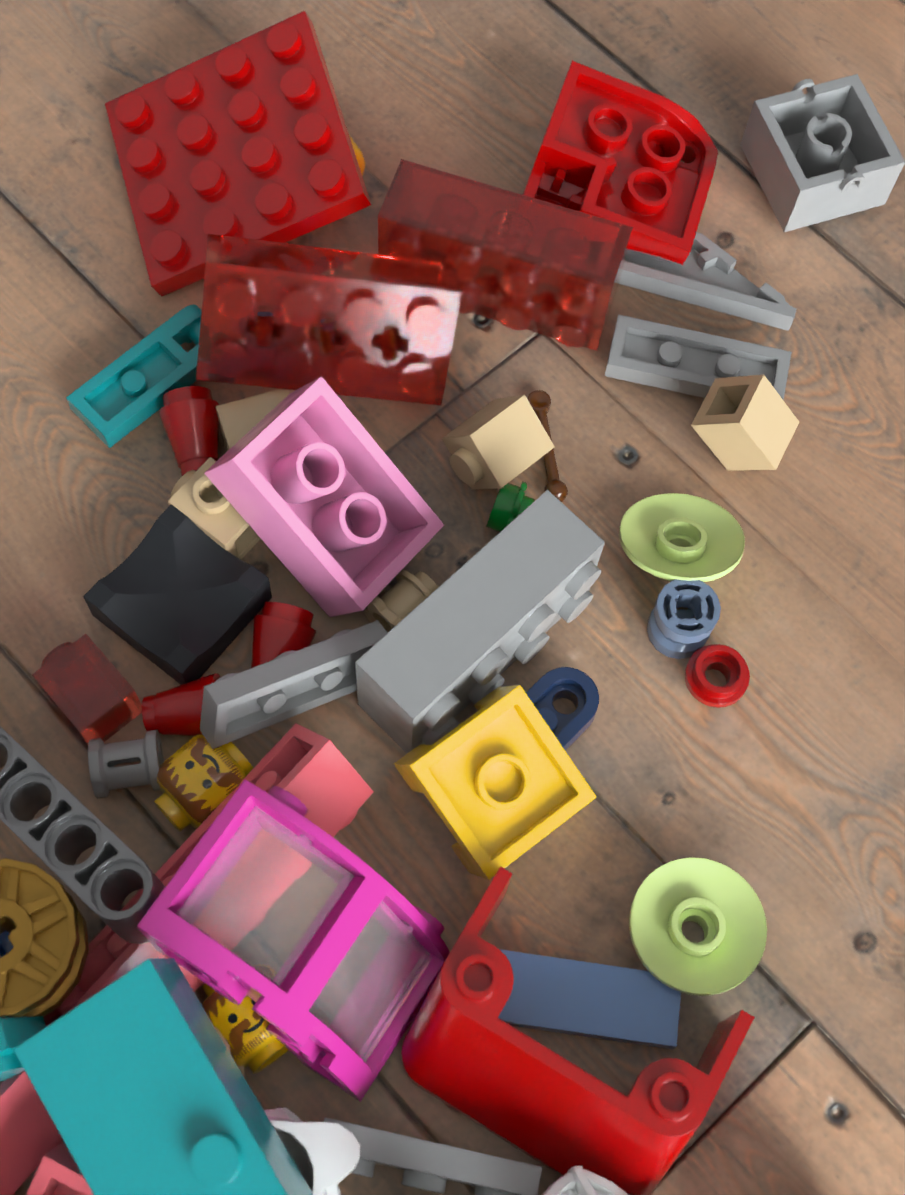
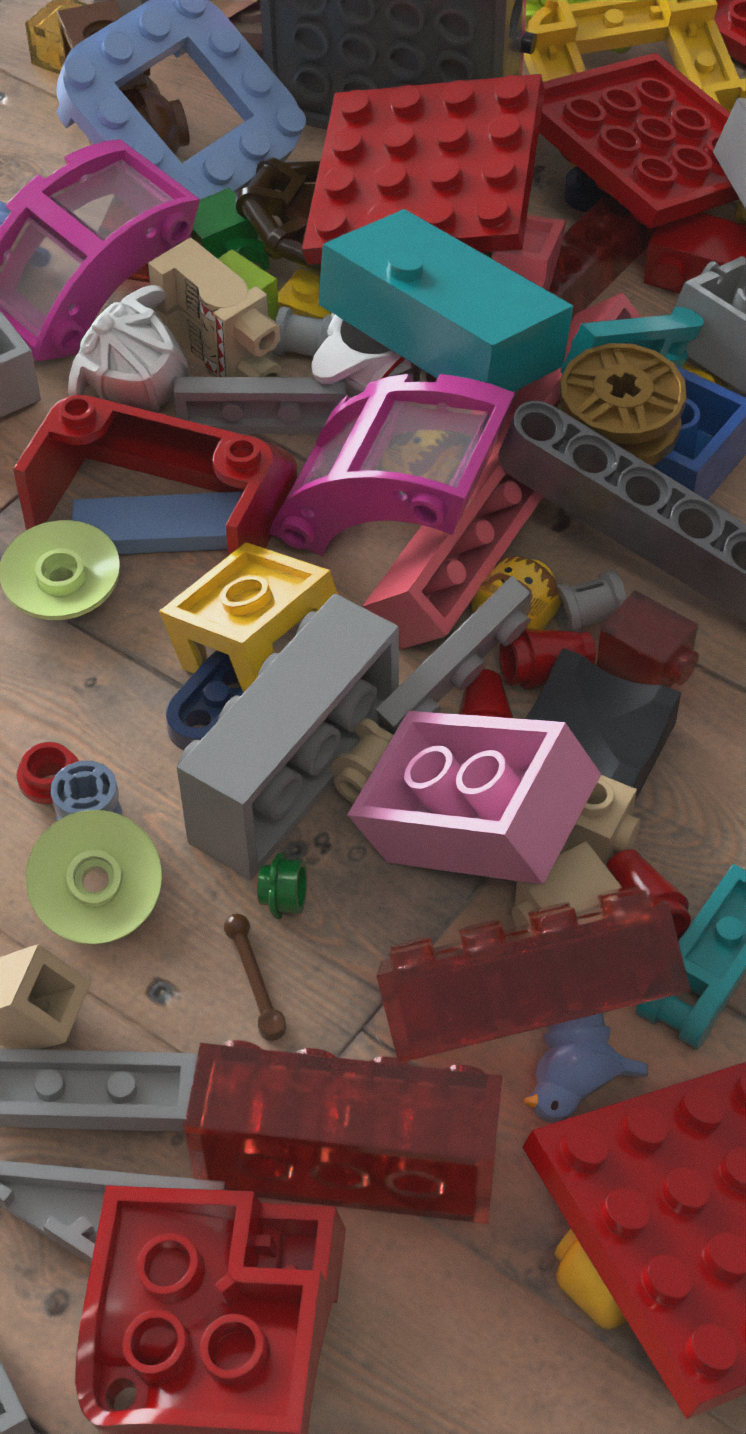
camera: 175 degrees right, 15 degrees down
(497, 443) = (309, 927): tan brick -> none

